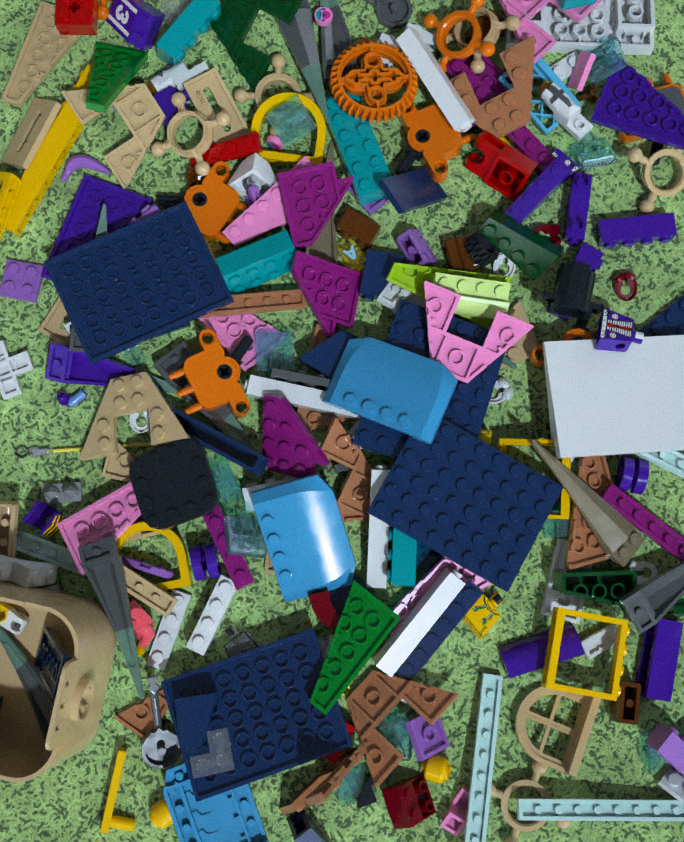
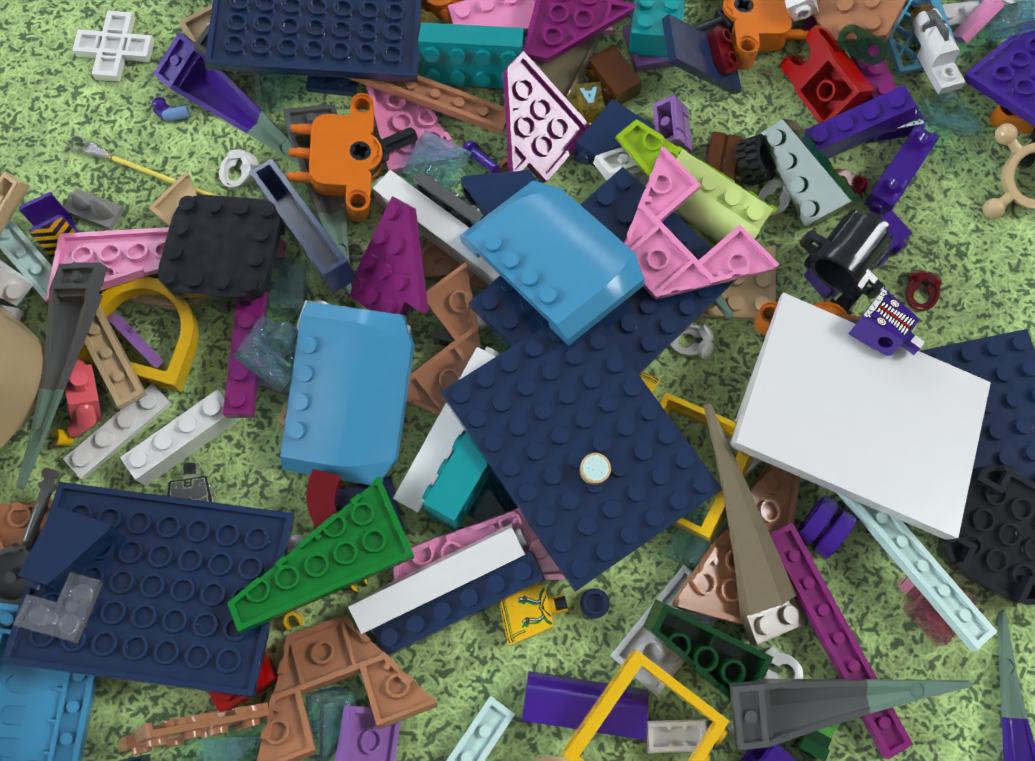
camera: 25 degrees right, 10 degrees down
(125, 397) = (229, 133): tan wing -> none
(205, 561) = (206, 365): dark purple wheel -> none
(290, 327) = (480, 157): none -> dark purple piece
(424, 178) = (722, 51): none -> dark red plate
(484, 514) = (595, 469): none -> light aqua tile
(515, 135) = (862, 43): none -> clear green plate
(517, 588) = (594, 603): none -> dark blue plate
(588, 93) = (975, 52): reddish brown plant -> none
(636, 230) = (967, 228): dark purple brick -> none

